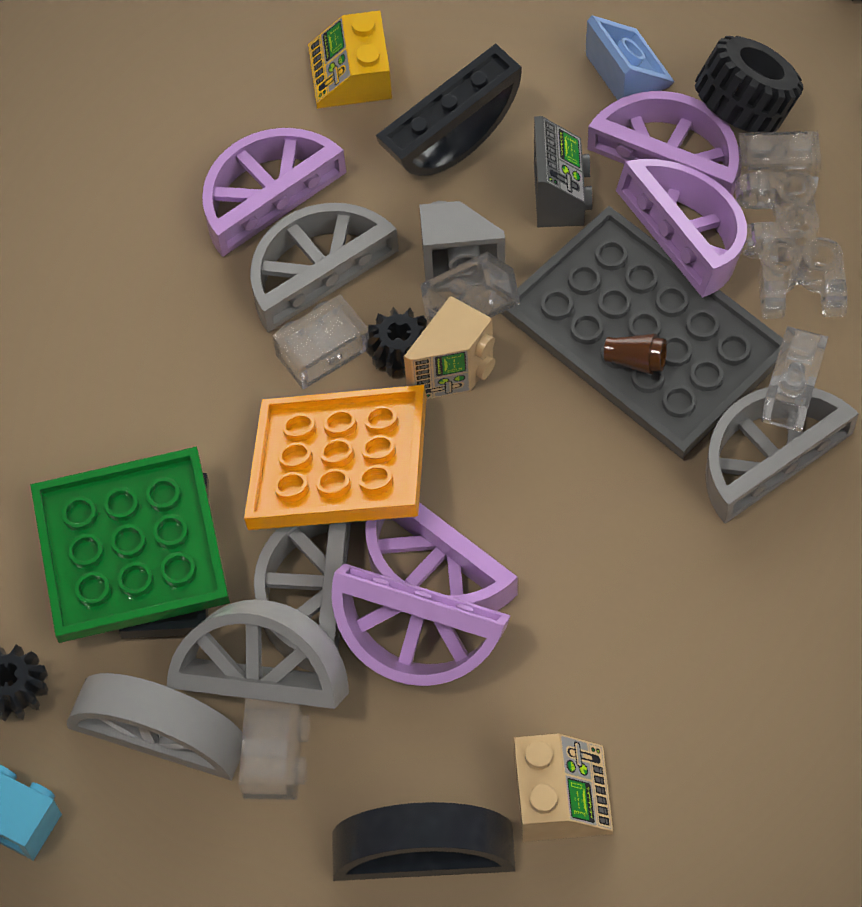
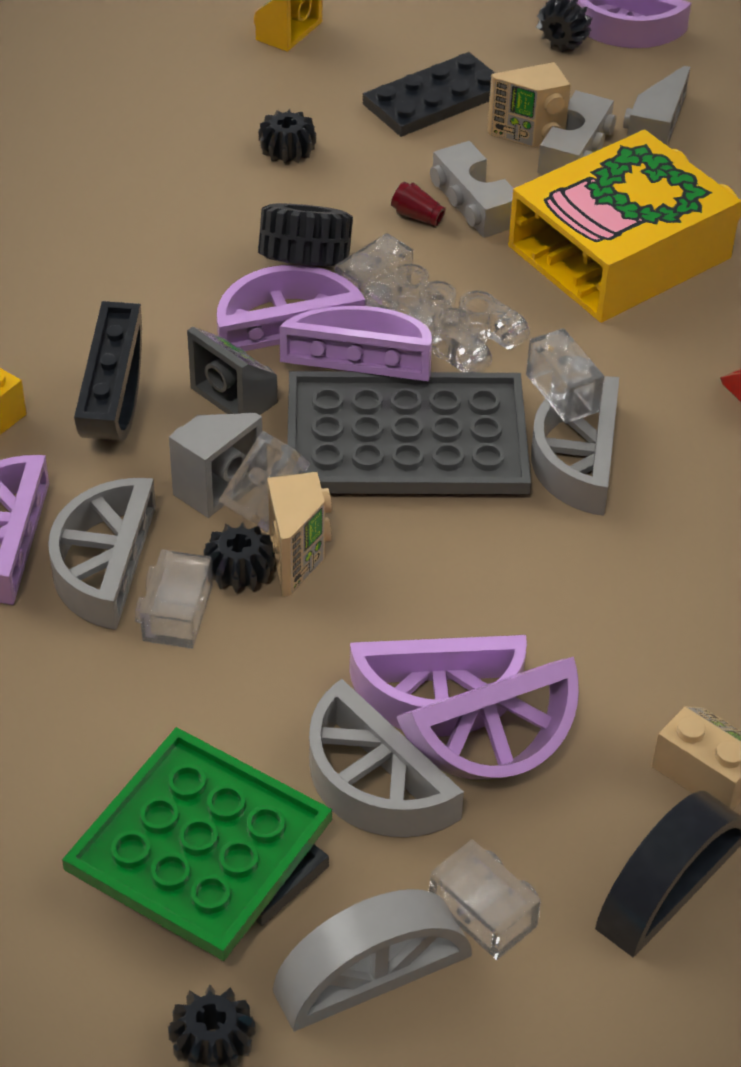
camera: 50 degrees left, 15 degrees down
(252, 680) = (425, 852): light grey window -> none
(337, 458) = (298, 655): light orange plate -> none
(624, 58) = (184, 283): light blue slope -> none
(637, 352) = (431, 438): reddish brown cone -> none

